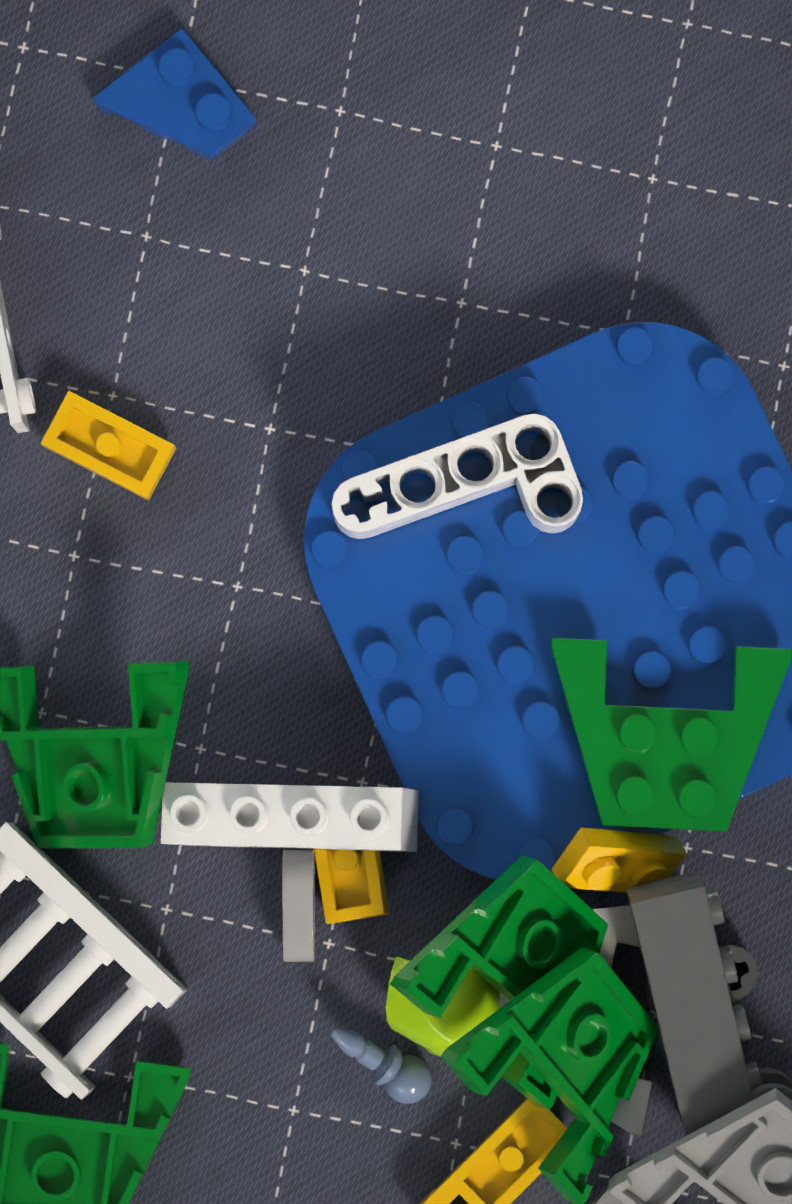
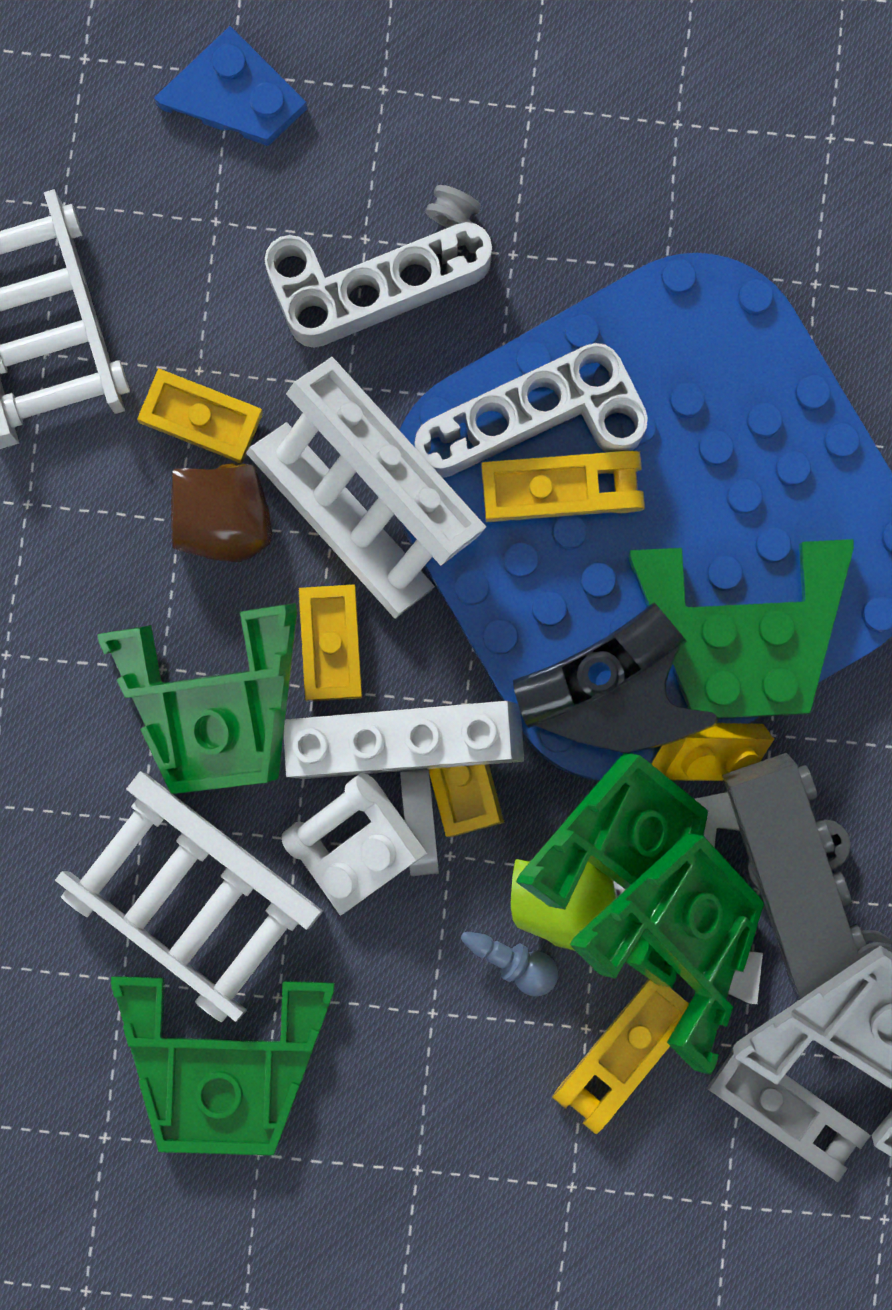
camera: 10 degrees left, 0 degrees up
(119, 553) = (219, 512): none -> reddish brown piece
(223, 703) = (330, 643): none -> yellow plate
(236, 939) = (363, 860): none -> white plate
(301, 524) = (387, 464): none -> white fence
(317, 310) = (381, 273): none -> white beam
(401, 248) = (452, 206): none -> light grey bush
(484, 561) = (560, 486): none -> yellow plate
(532, 809) = (630, 708): none -> black pin

